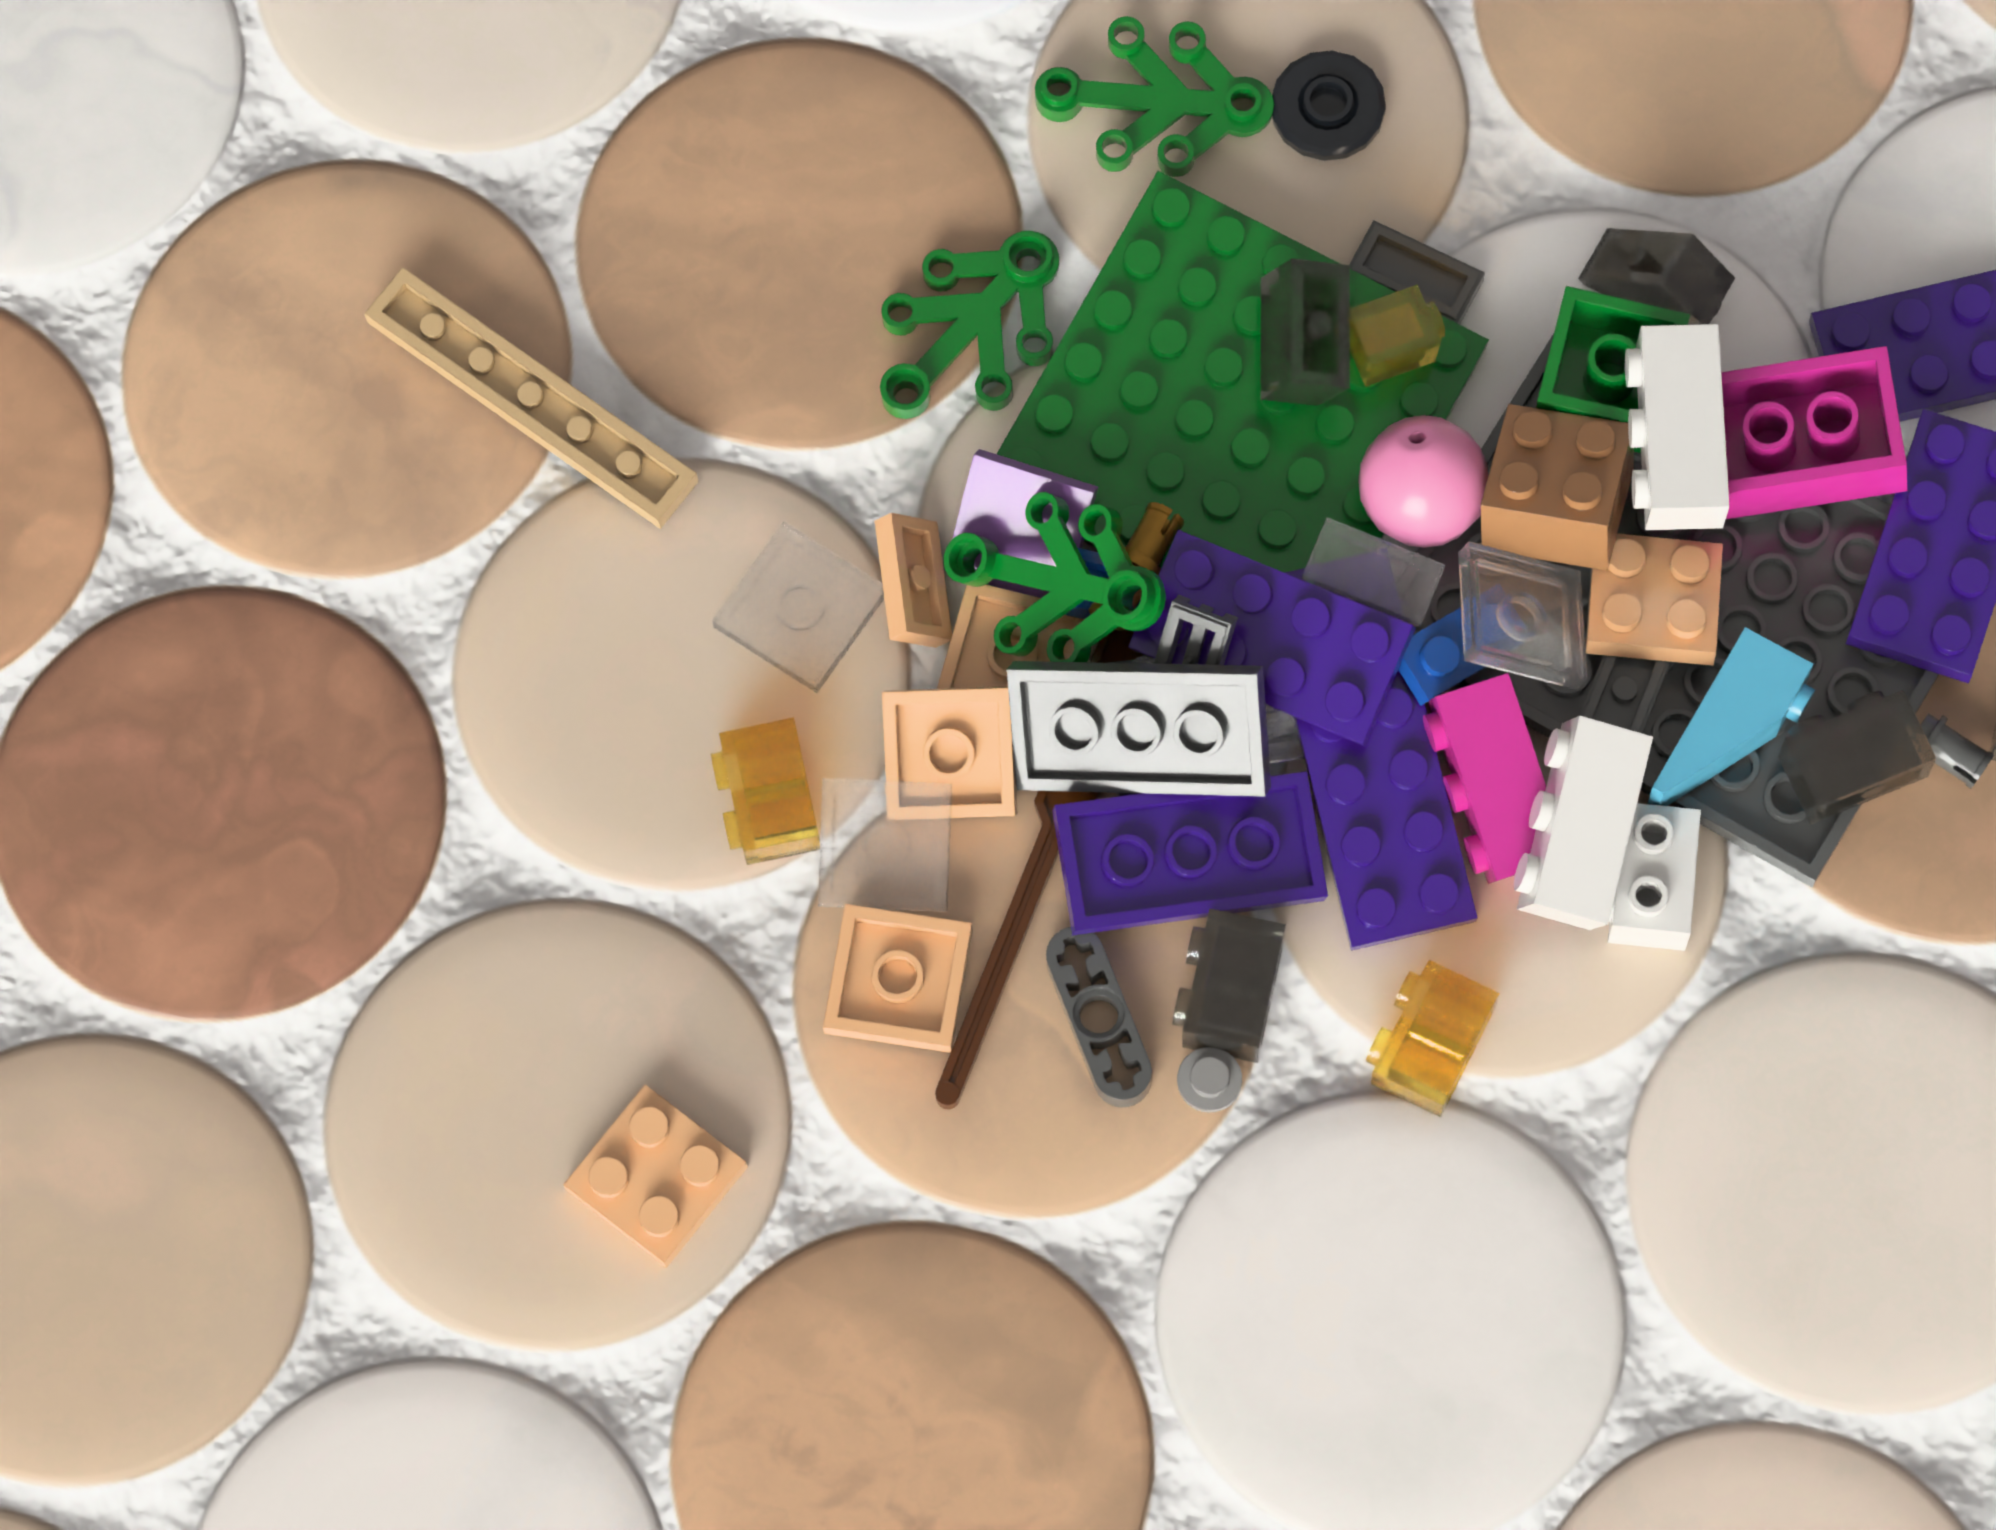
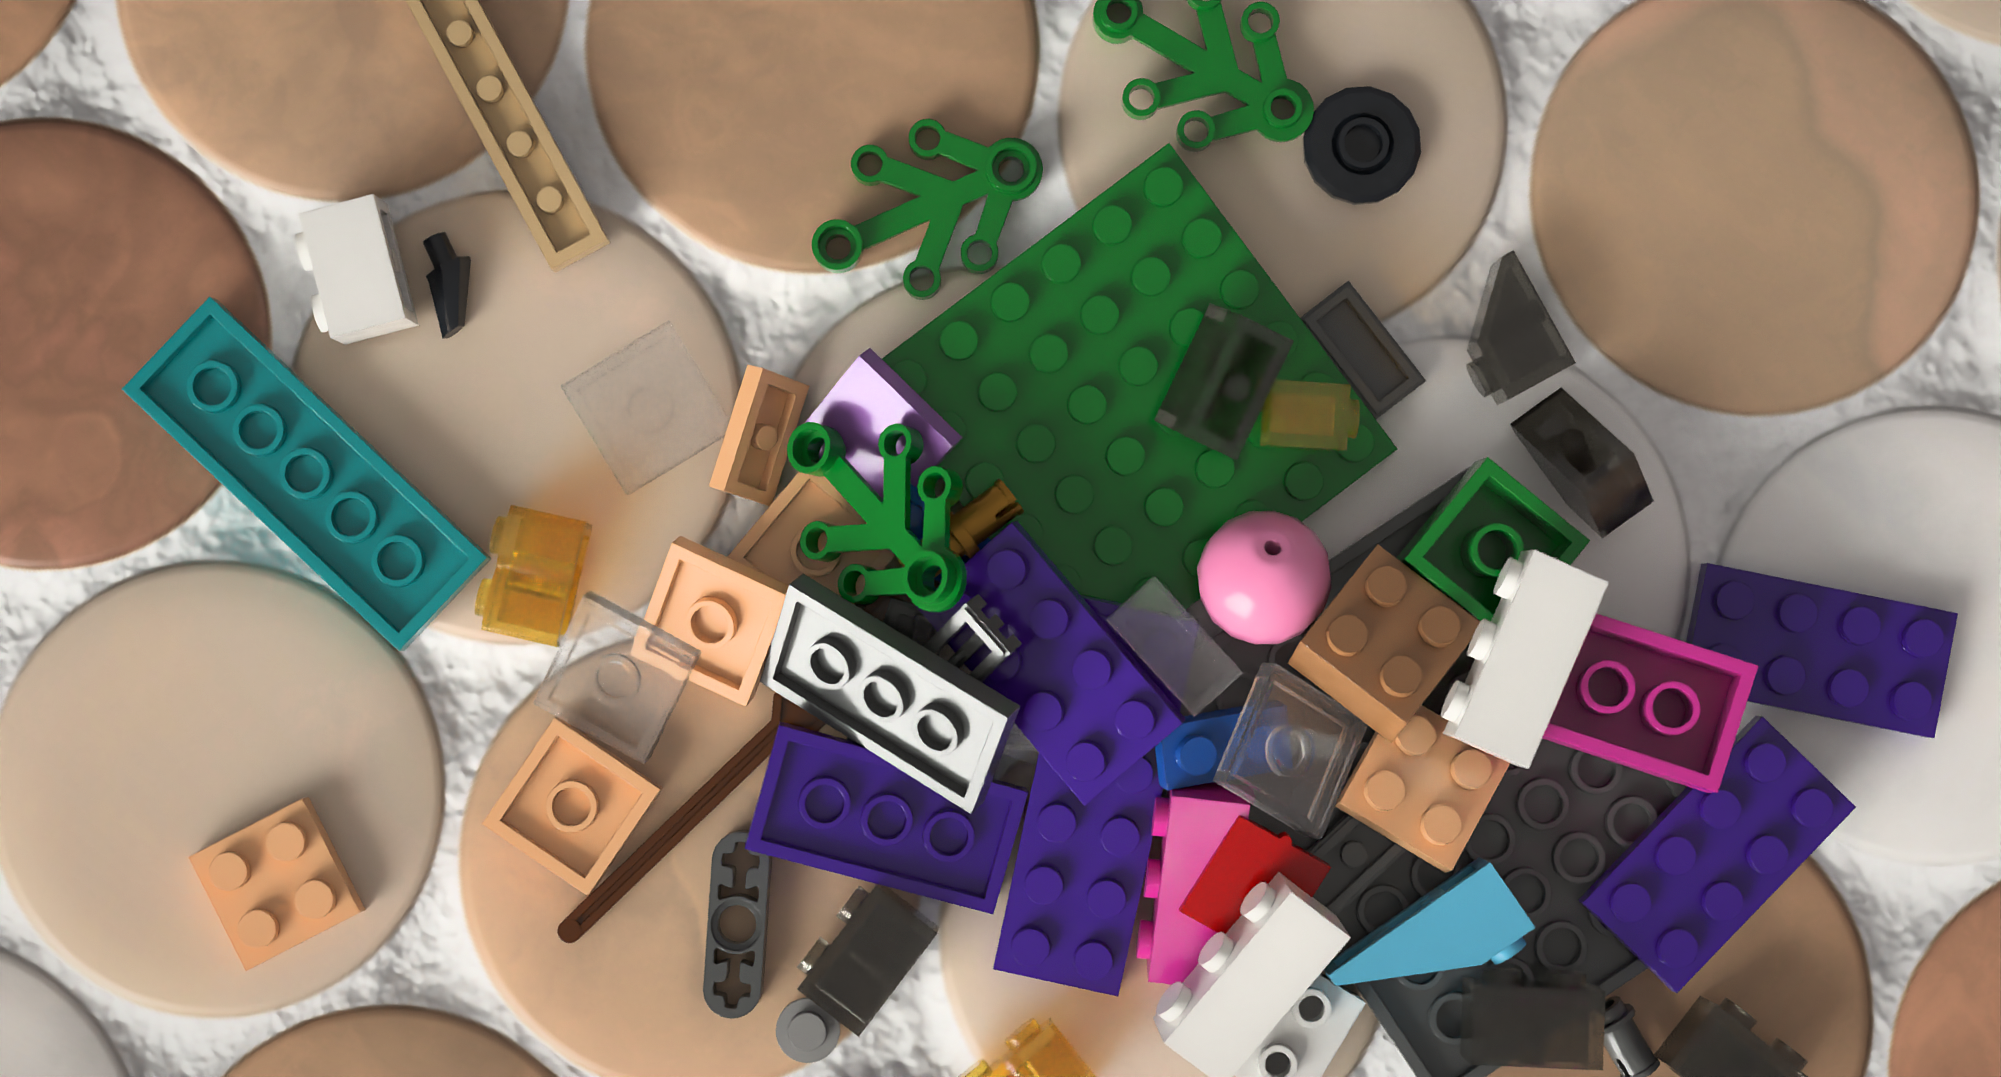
camera: 20 degrees right, 15 degrees up
(483, 596) = (355, 270): none -> white brick
(517, 798) = (306, 474): none -> teal plate
(567, 580) = (448, 283): none -> black bar
(1523, 734) = (1242, 861): none -> red piece
(1543, 199) = (1513, 335): none -> clear smoke slope

